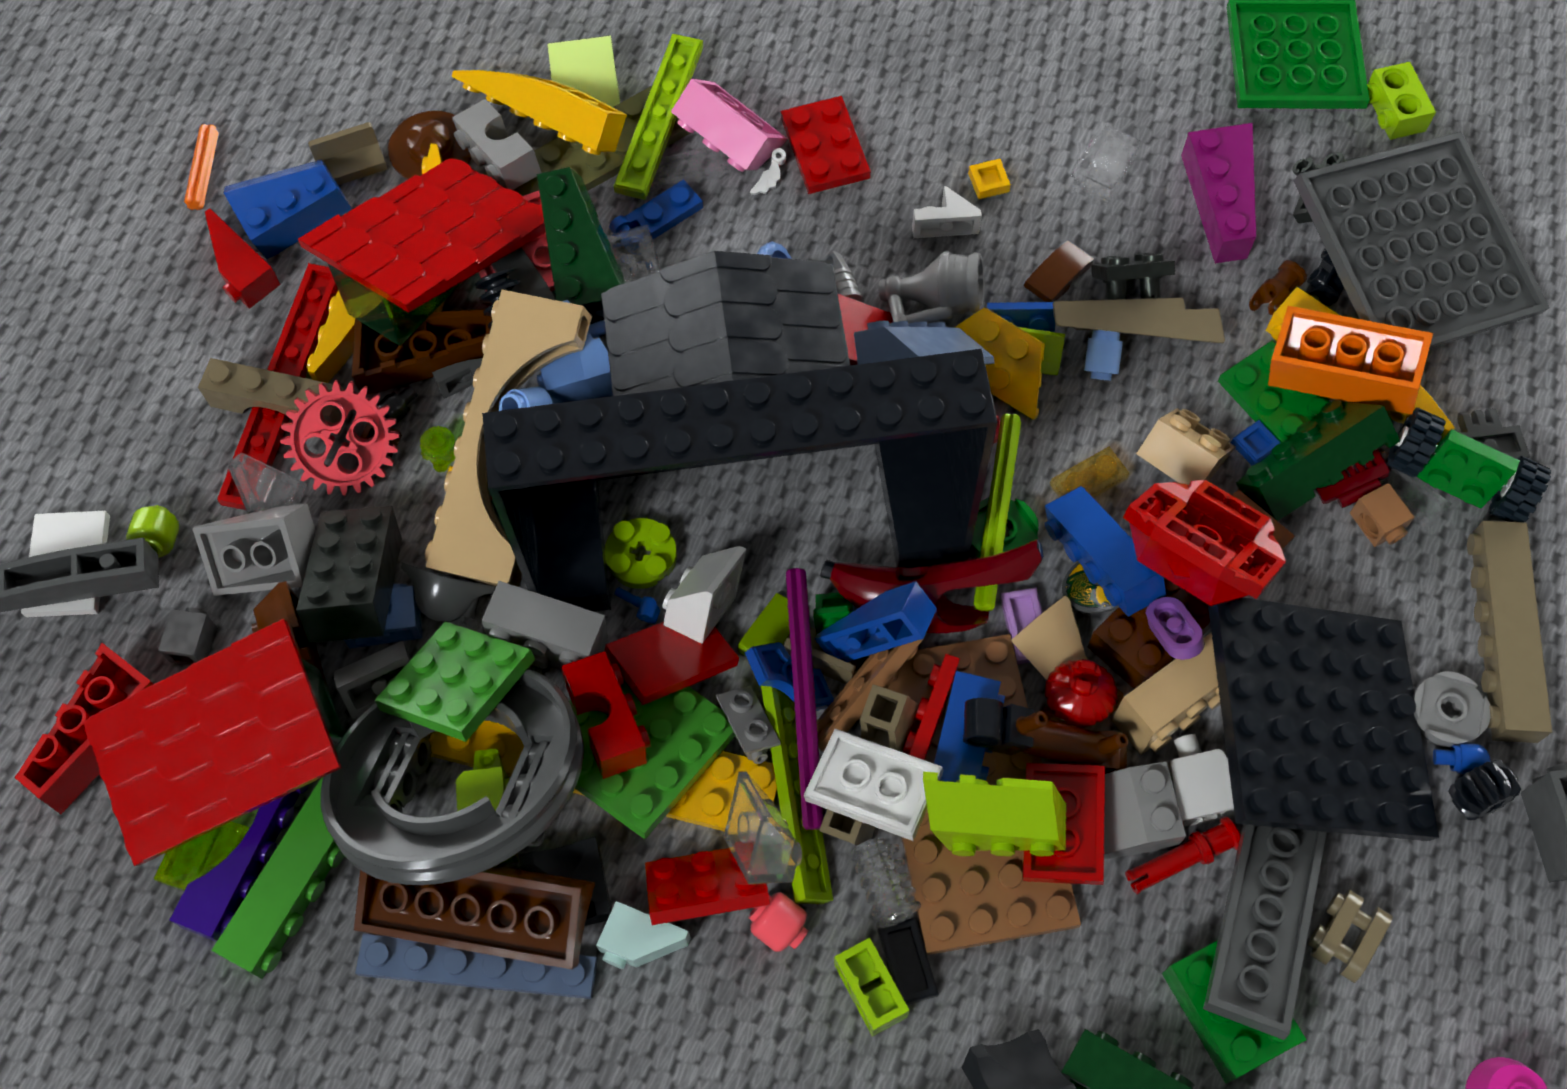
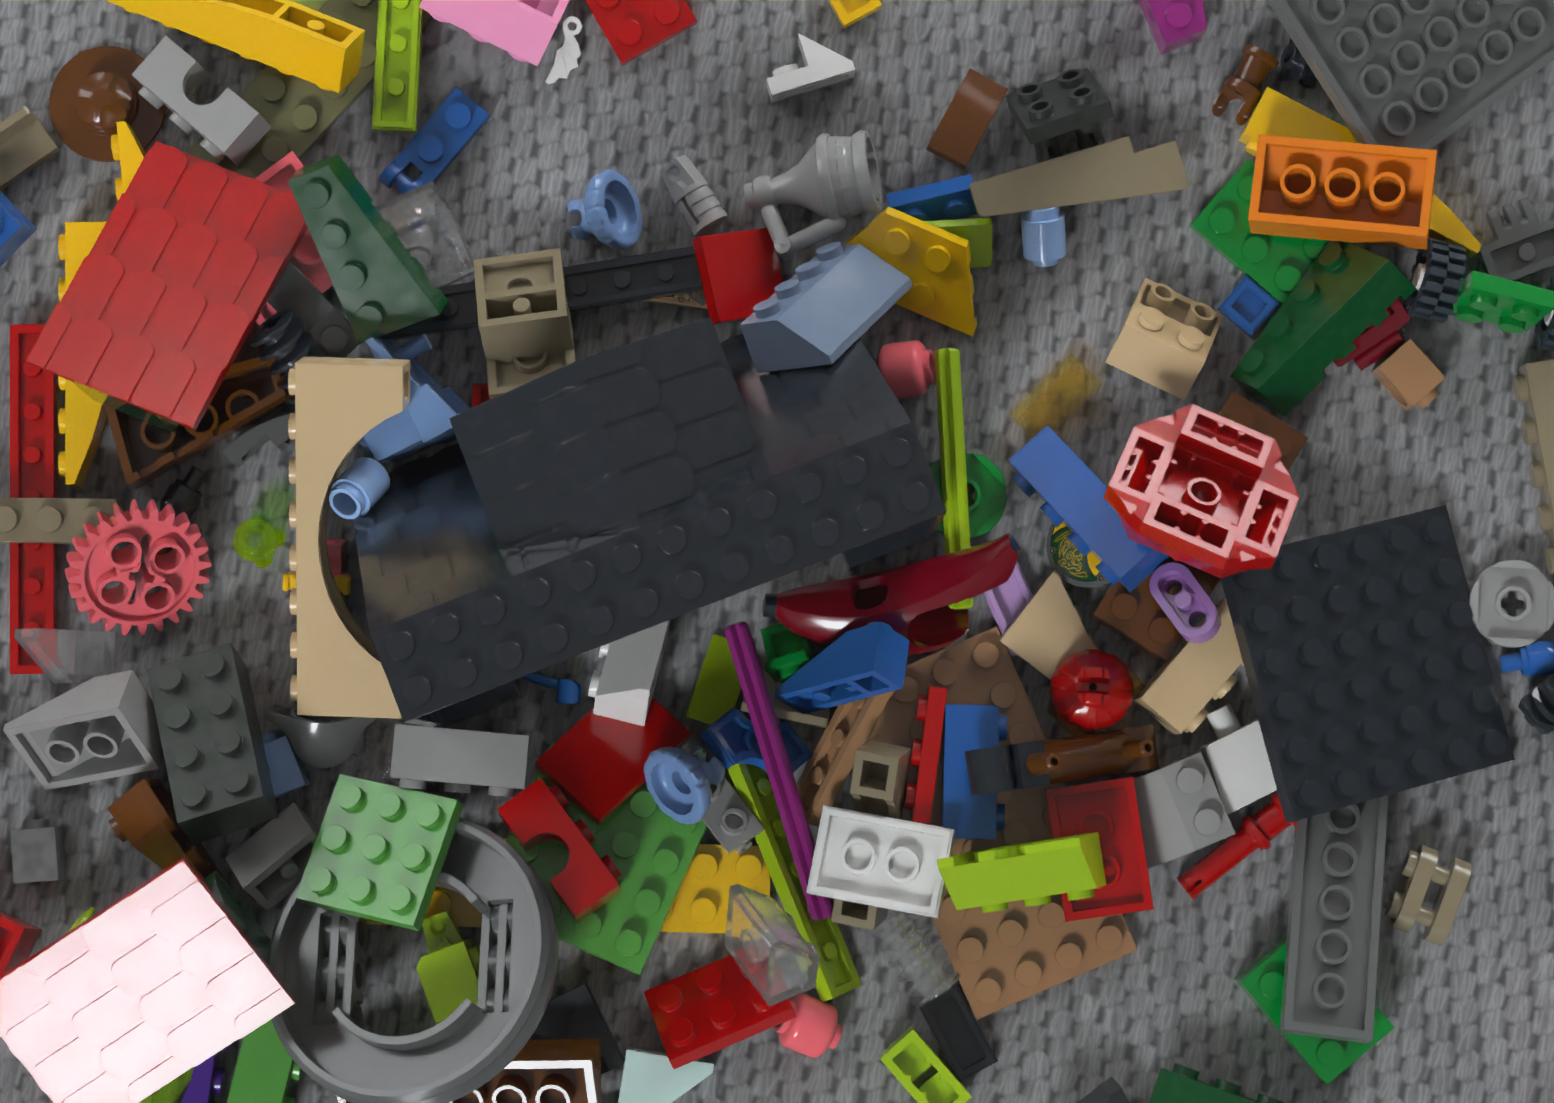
camera: 15 degrees left, 20 degrees up
(721, 683) = (682, 782): none -> medium blue hair

